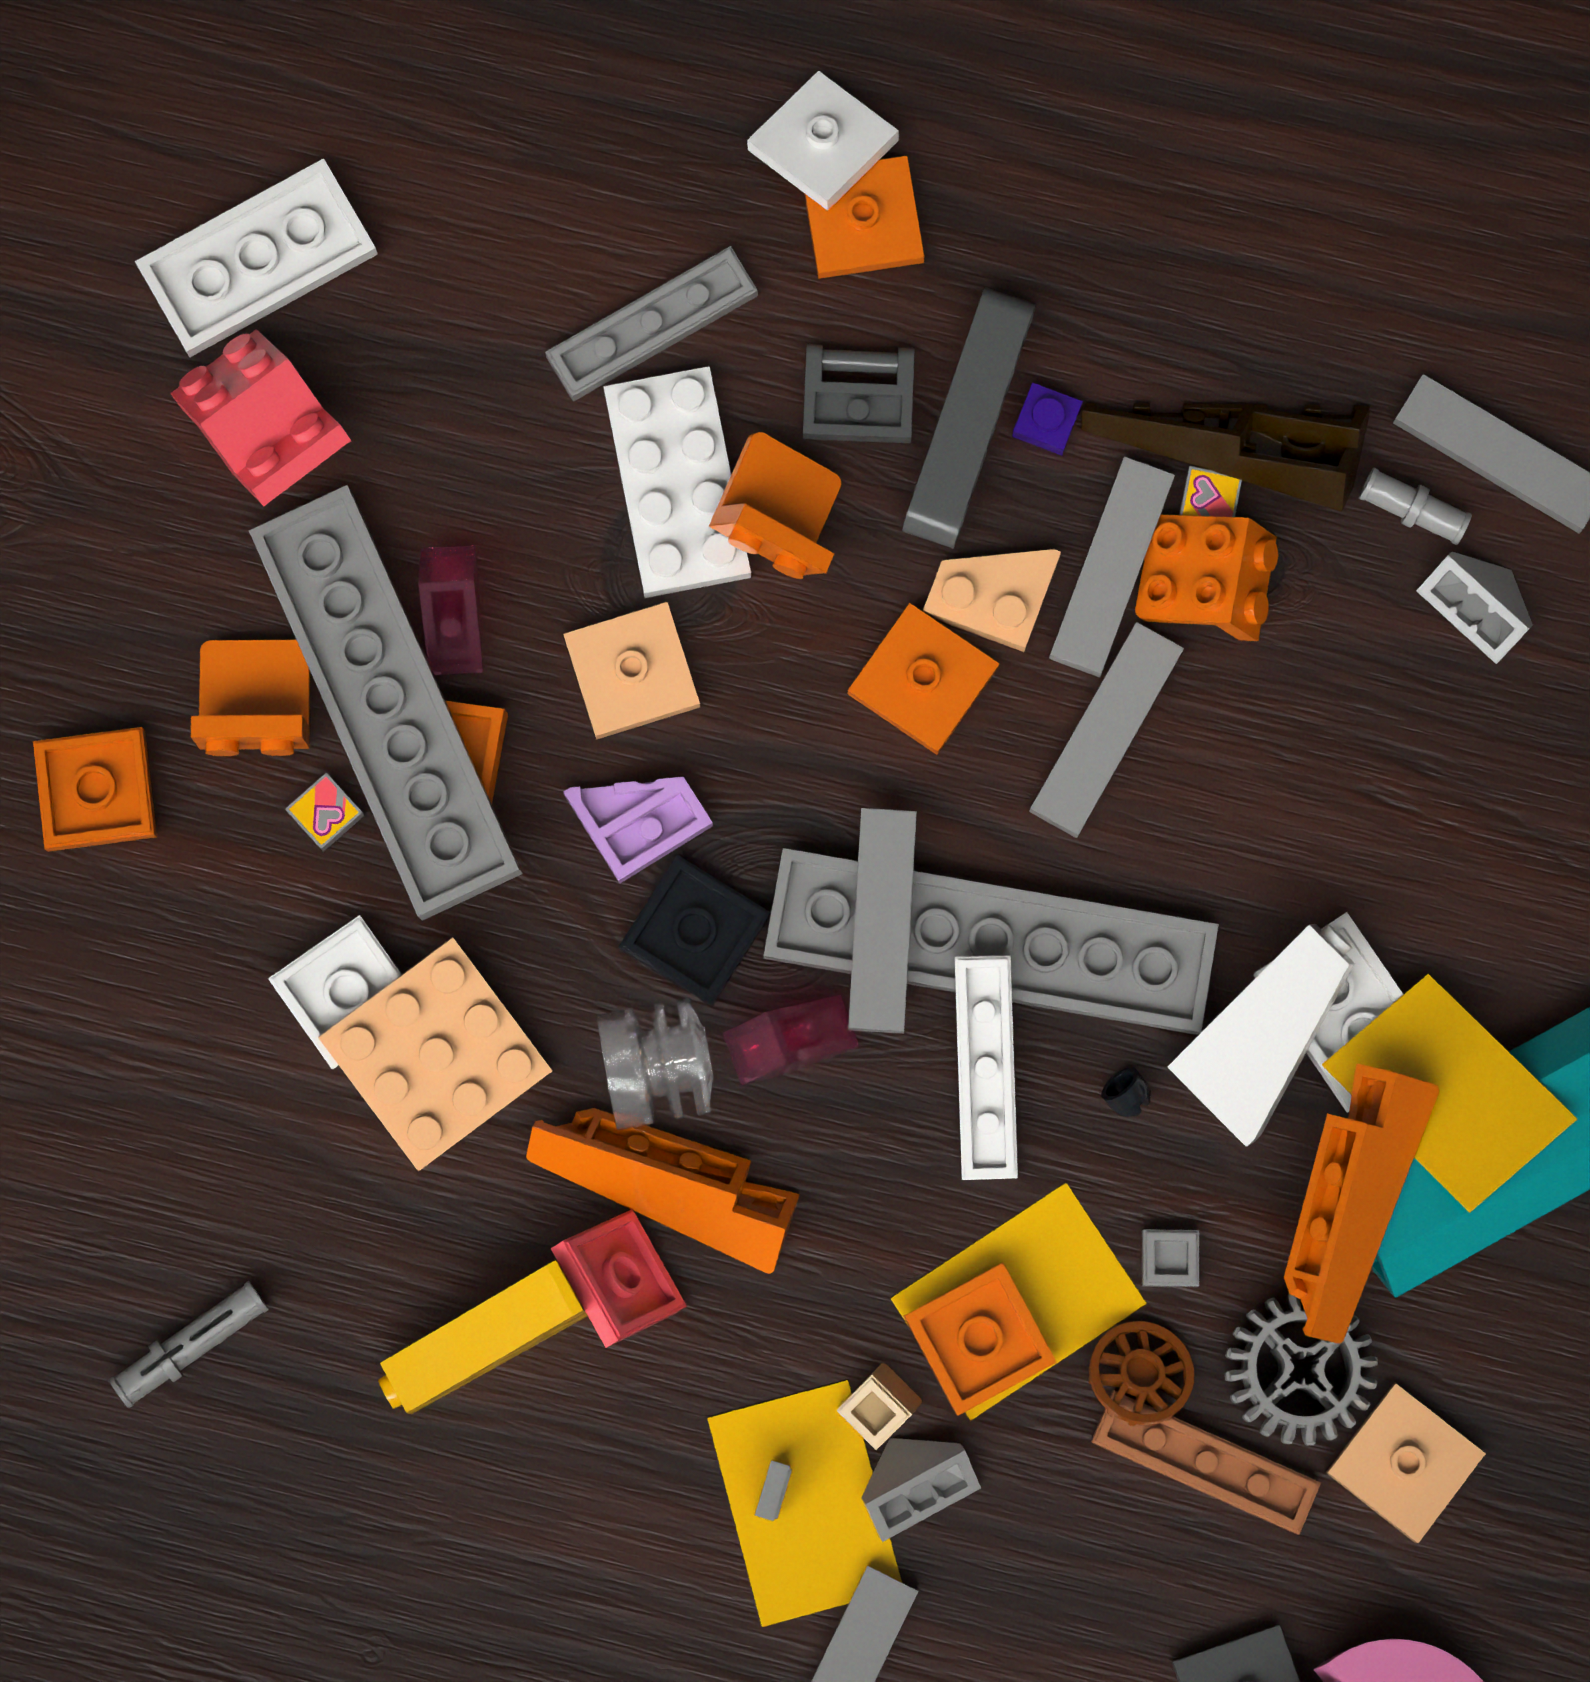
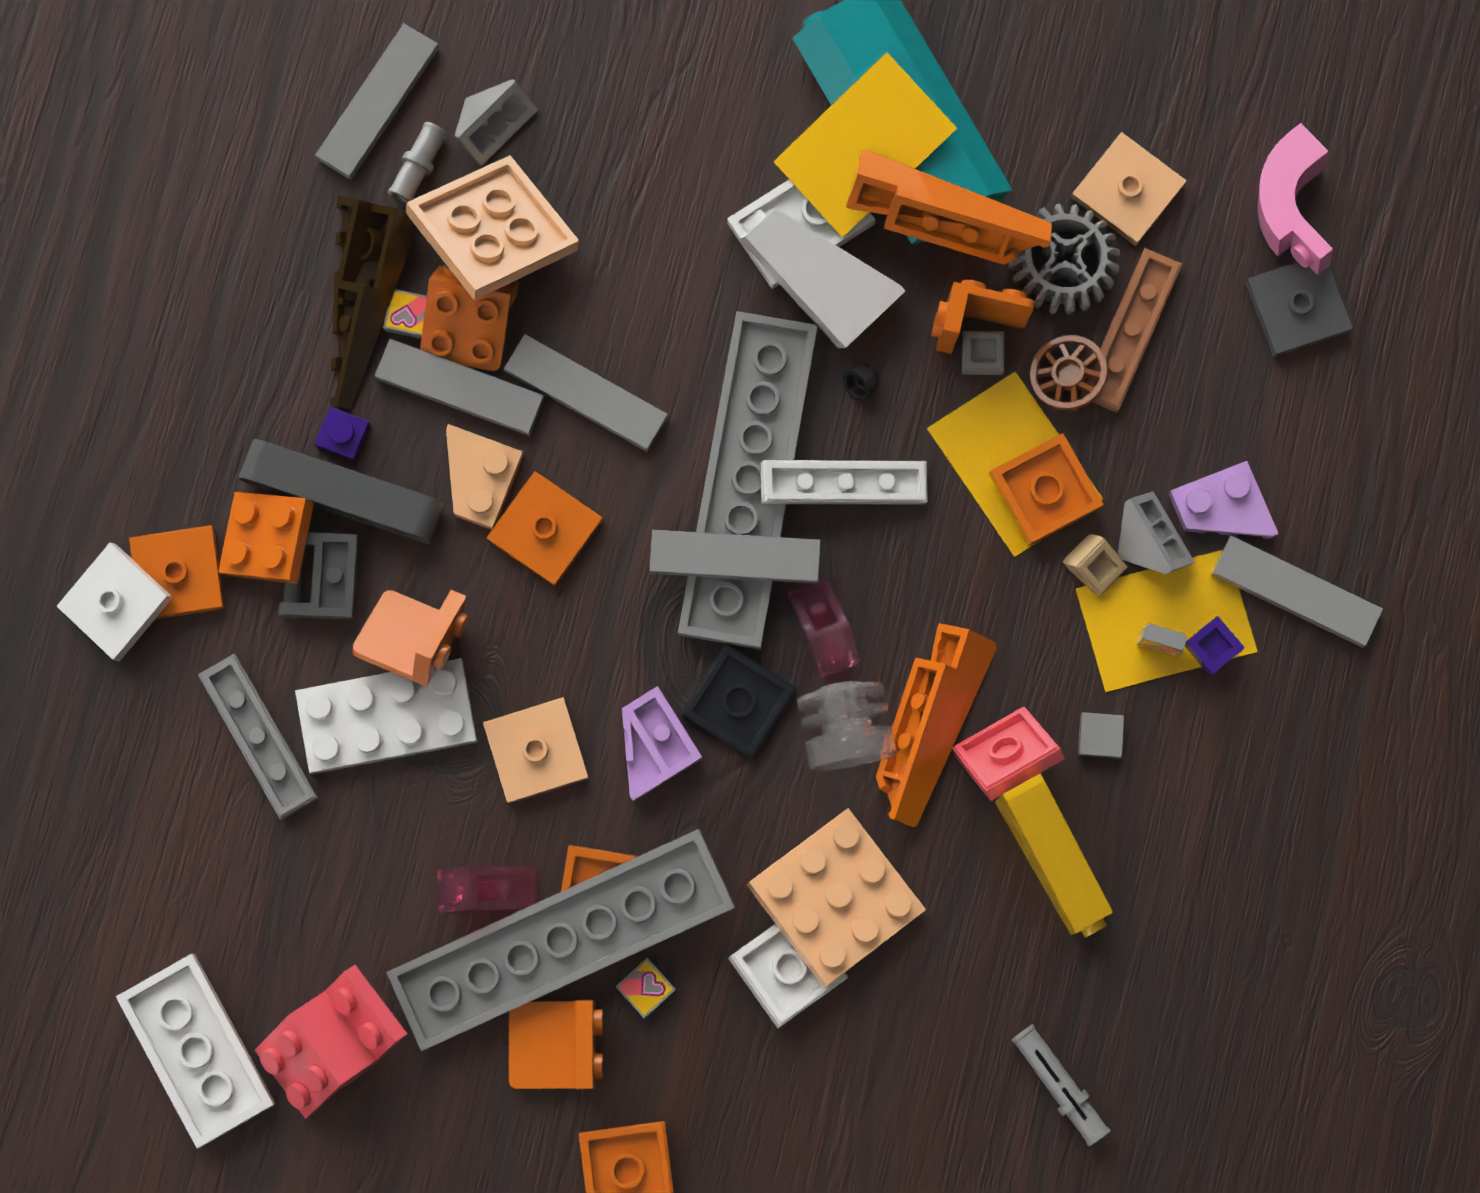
camera: 90 degrees left, 0 degrees up
(647, 1408) = (1101, 735): none -> light grey tile
(766, 1562) = (1214, 645): none -> dark purple plate
(906, 324) = (266, 537): none -> orange plate
(962, 1585) = (1224, 504): none -> lavender wing
(1209, 1206) = (975, 301): none -> orange bracket
(1323, 600) = (492, 227): none -> light nougat plate

